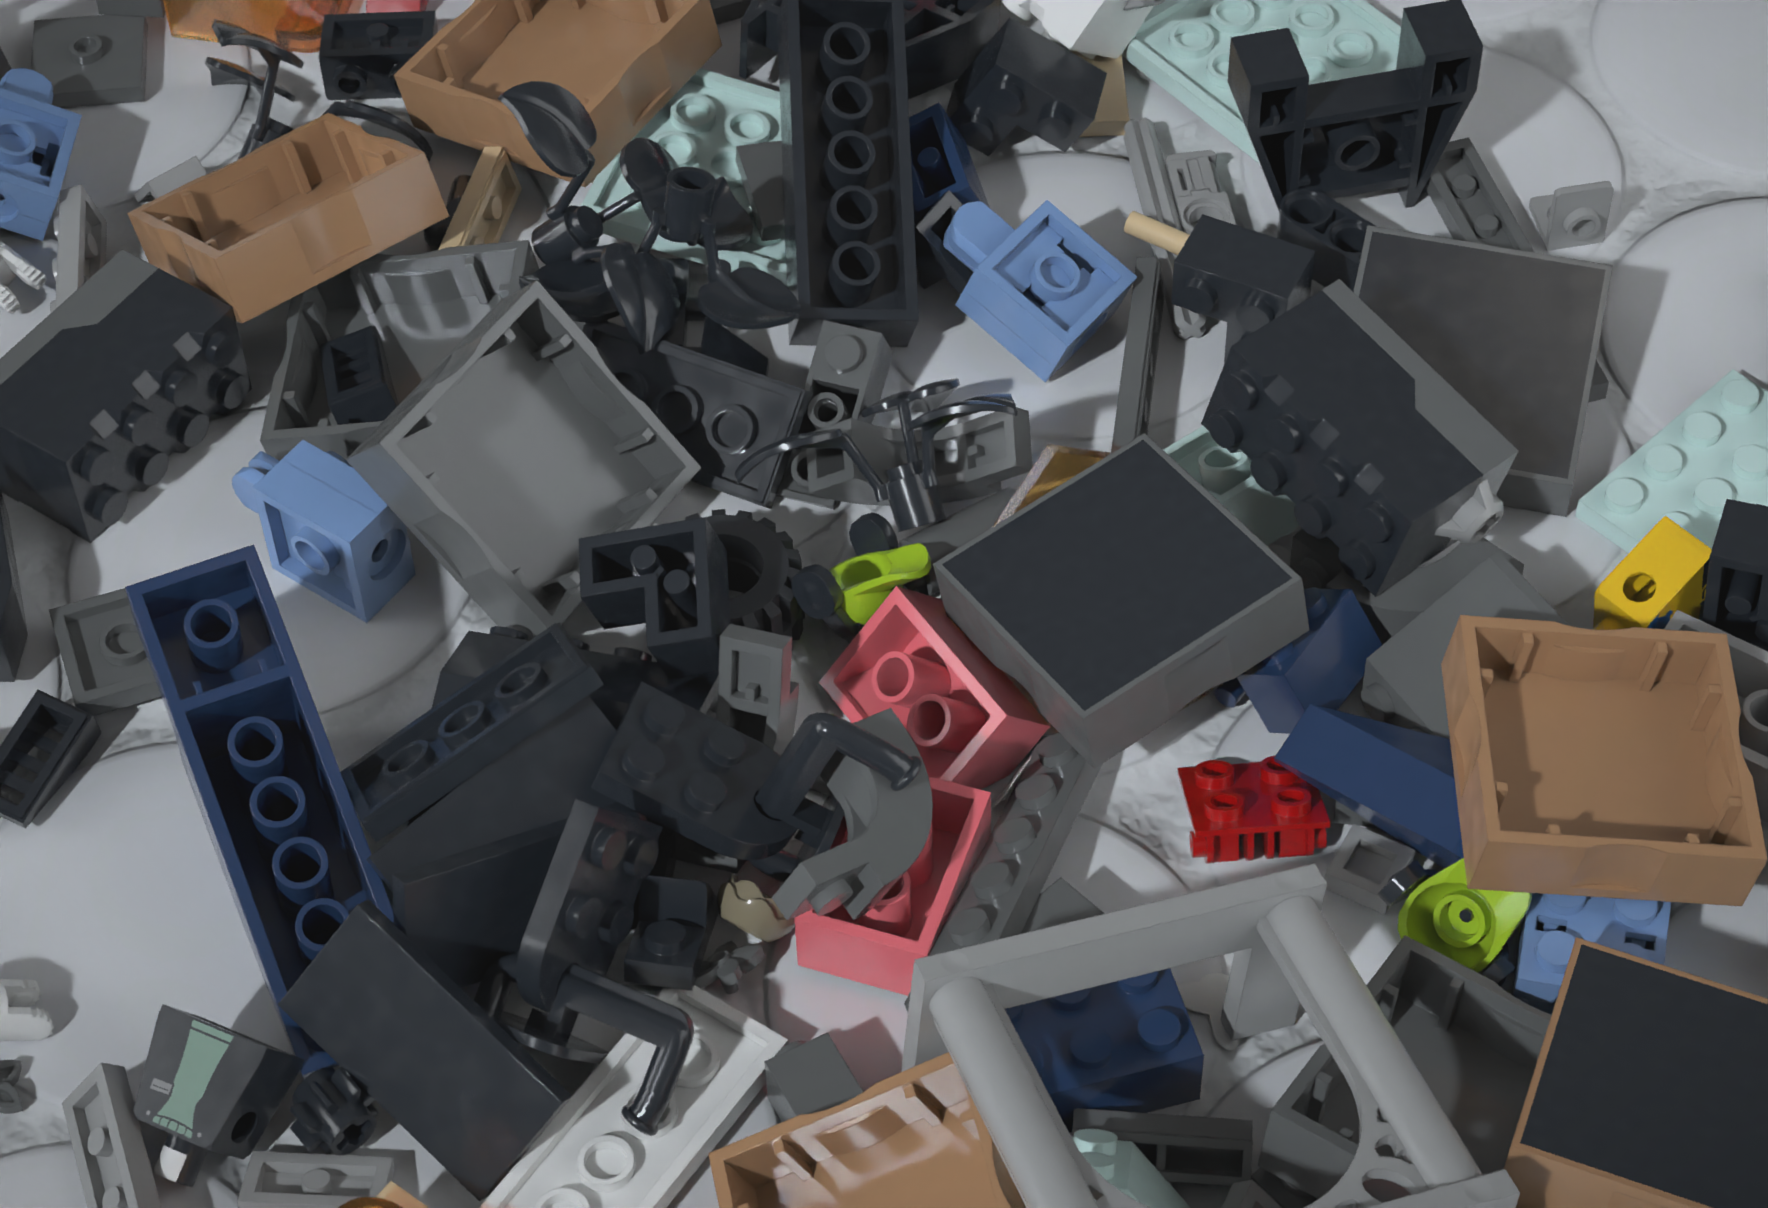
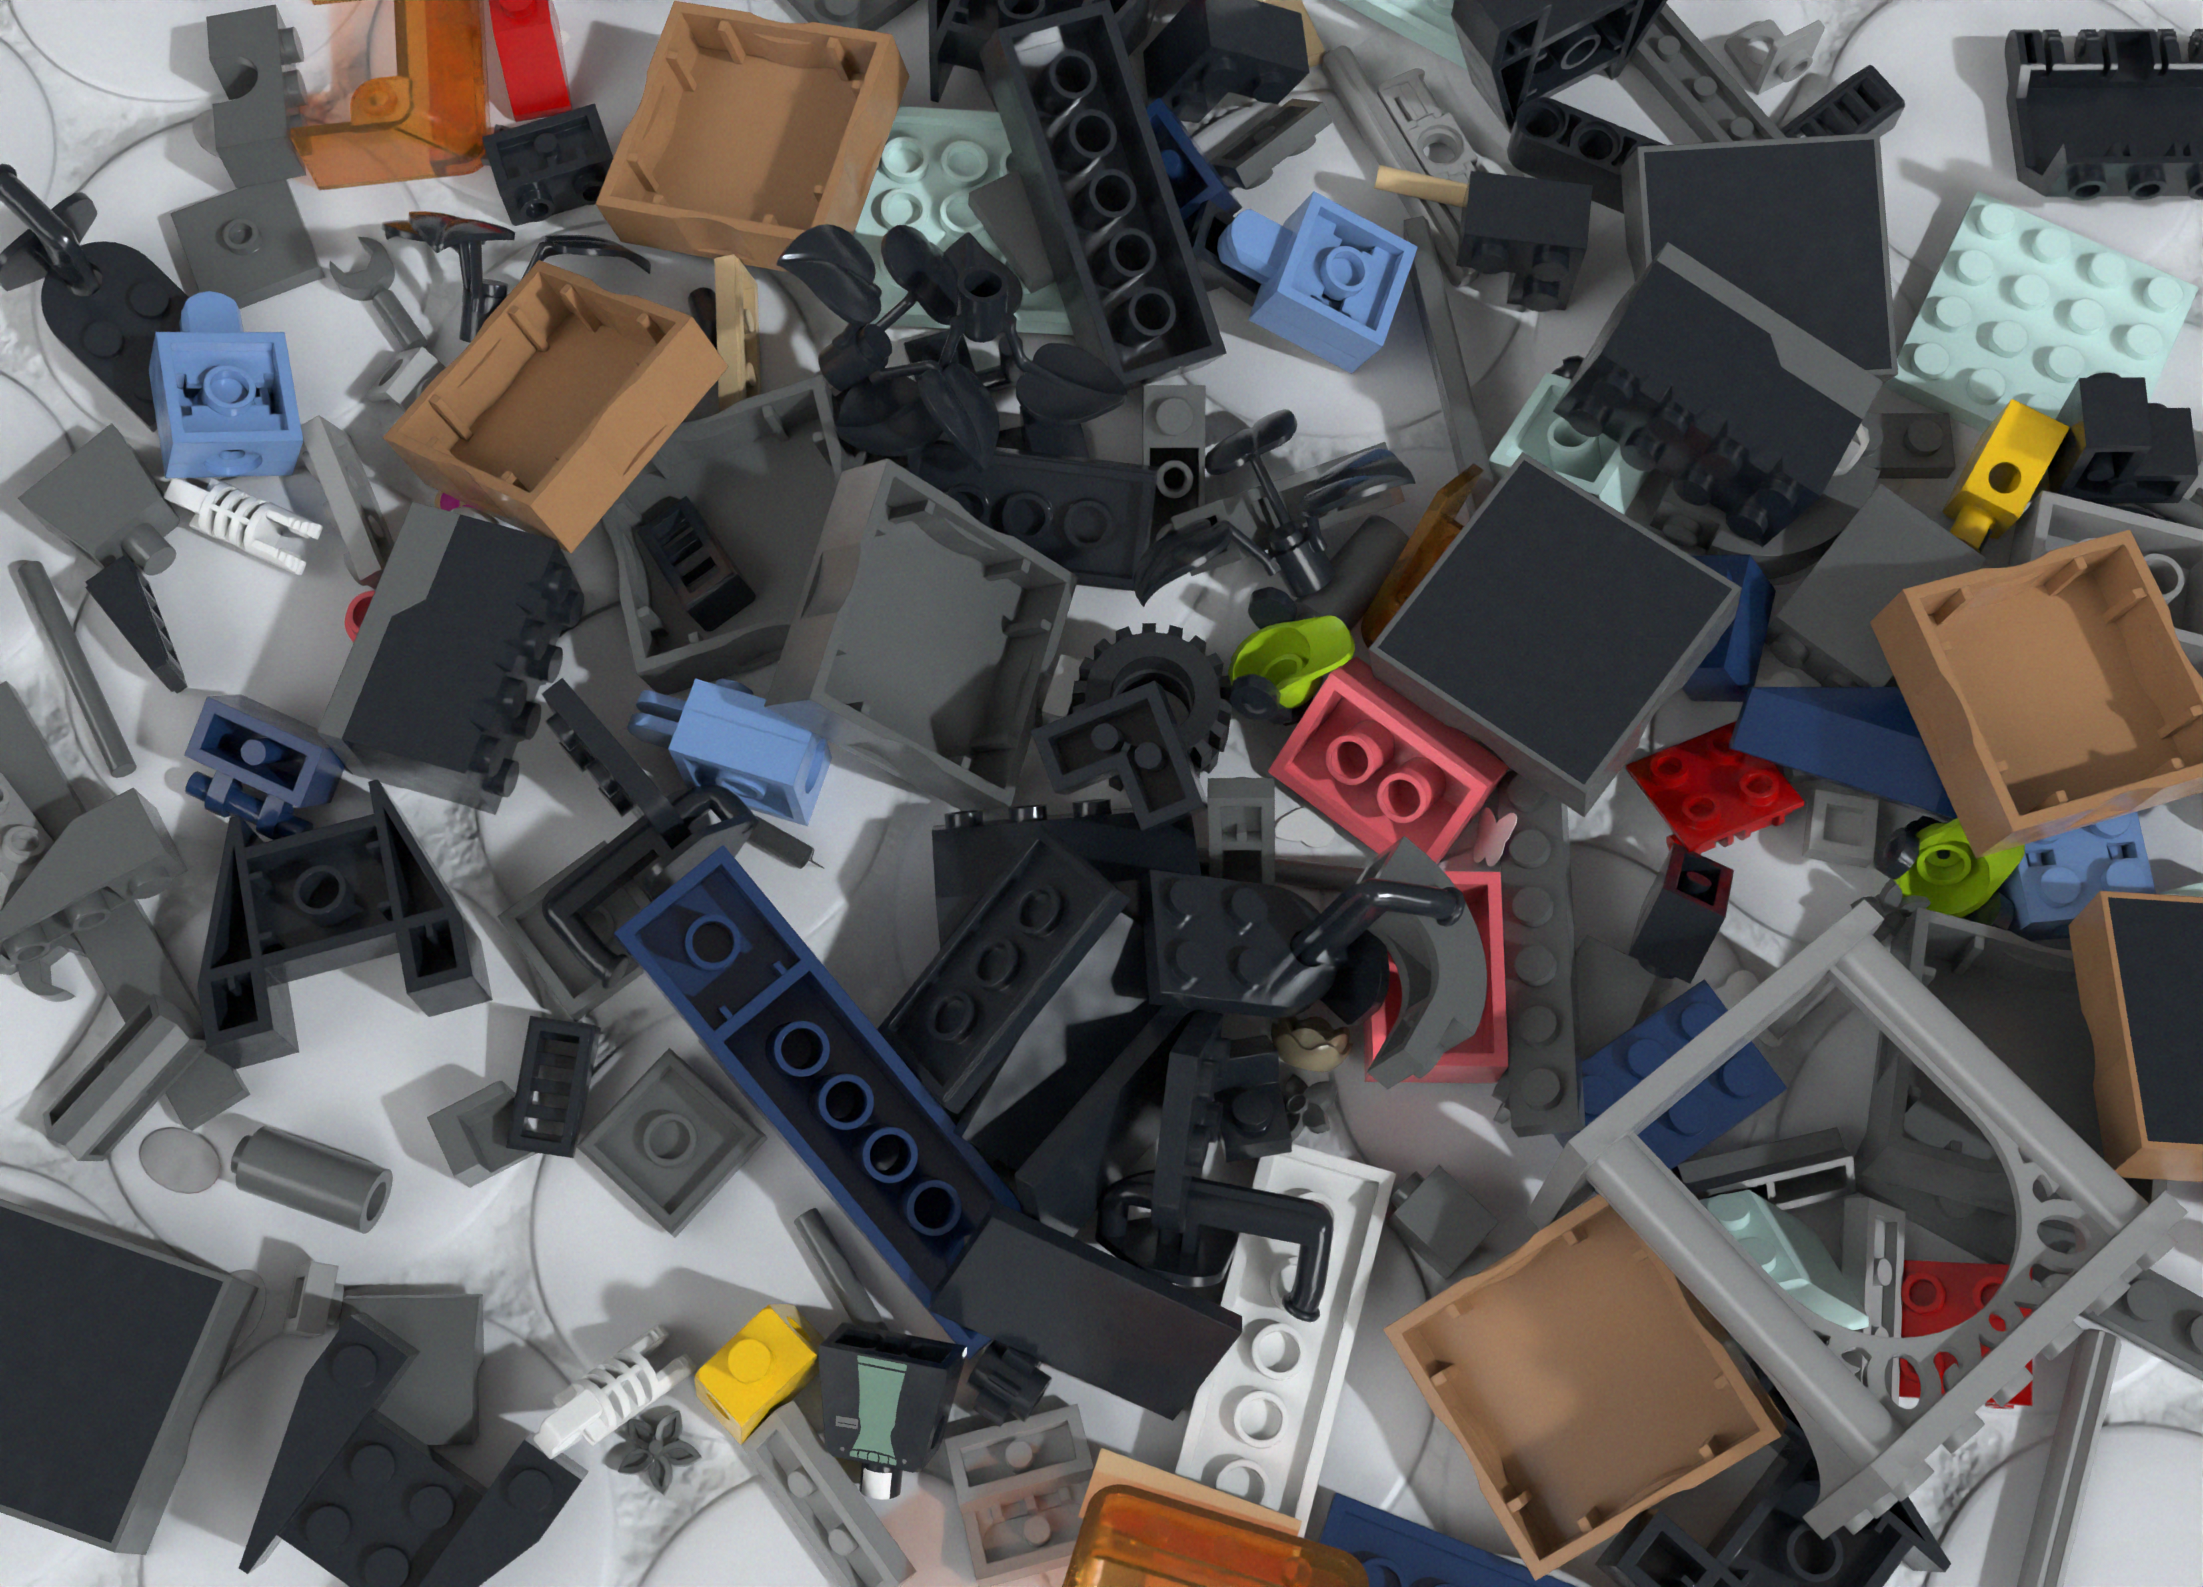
camera: 20 degrees left, 20 degrees up
(95, 1019) = (759, 1369): none -> yellow torso
(118, 835) = (672, 1142): none -> dark grey plate
(183, 116) = (374, 285): none -> dark grey piece
(200, 505) = (658, 833): none -> black plate
(220, 977) = (838, 1270): none -> dark grey bar
(333, 625) = (782, 844): none -> dark grey piece
(1066, 175) = (1279, 136): none -> dark grey plate
(1156, 865) = (1681, 914): none -> black brick
(1377, 947) = (1893, 908): none -> dark grey plant
(1560, 560) = (1909, 445): none -> dark grey plate
(1650, 277) = (1863, 96): none -> black slope

